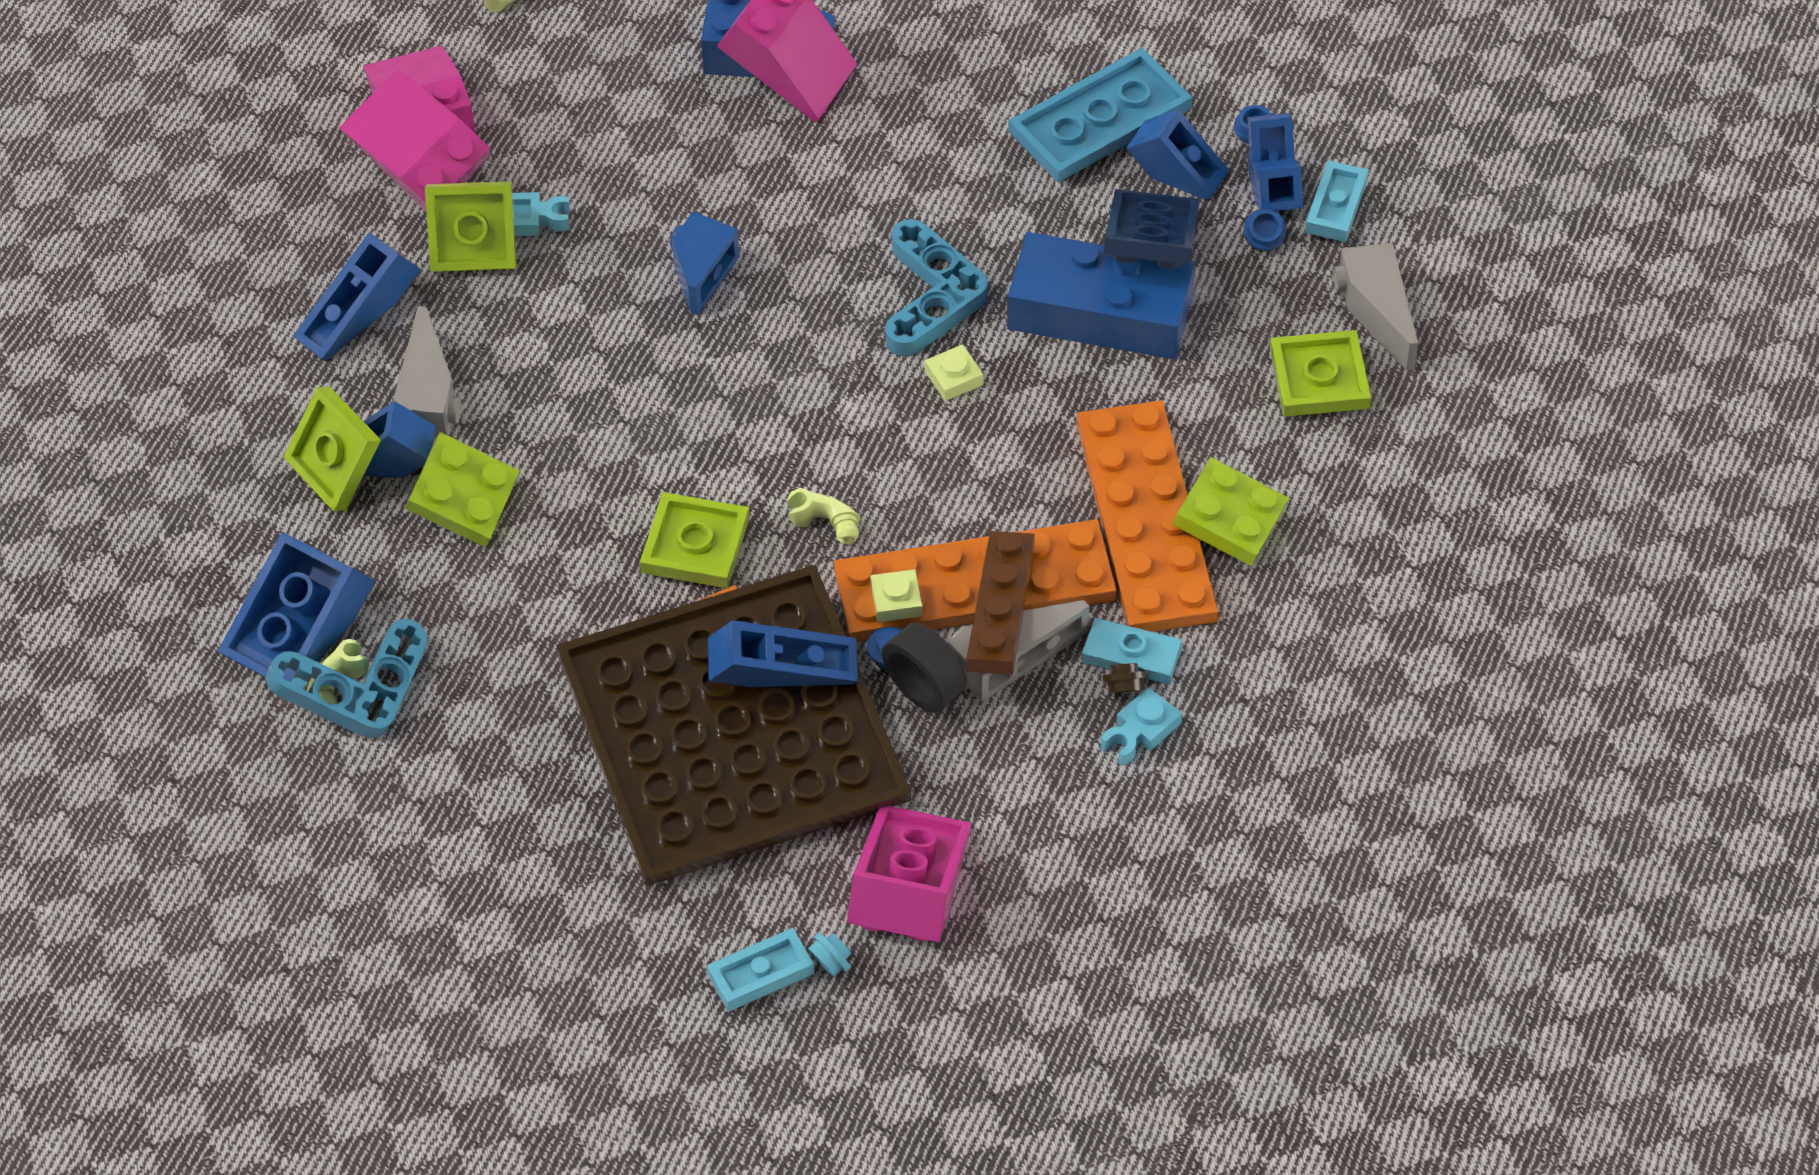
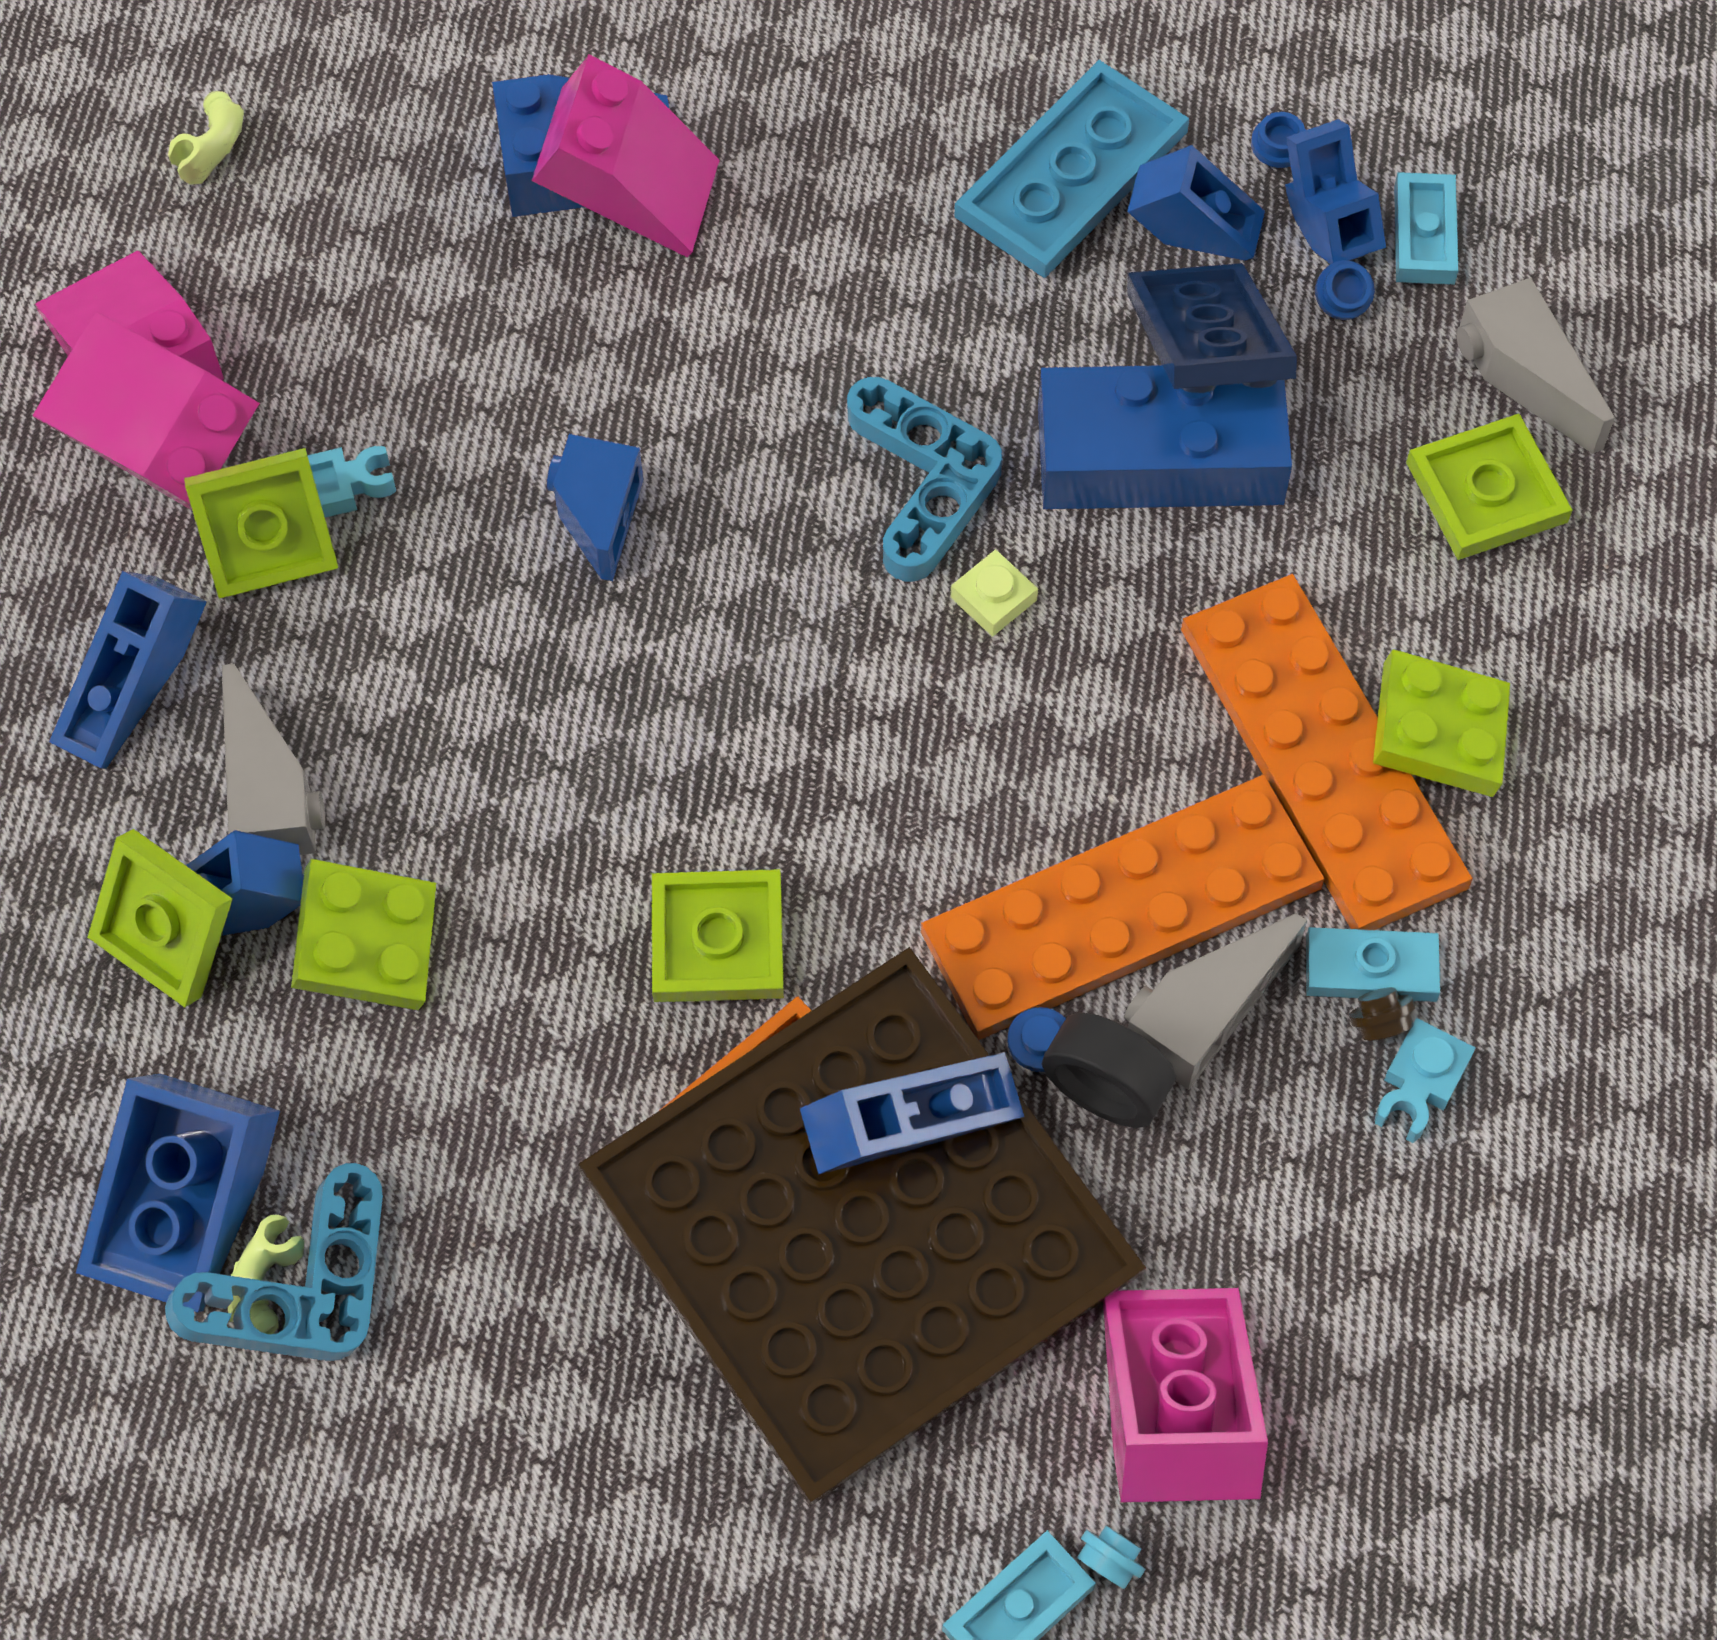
camera: 15 degrees left, 10 degrees up
(812, 505) = (907, 848): yellowish green piece -> none
(896, 595) = (1032, 964): yellowish green plate -> none
(1001, 603) = (1188, 948): reddish brown plate -> none

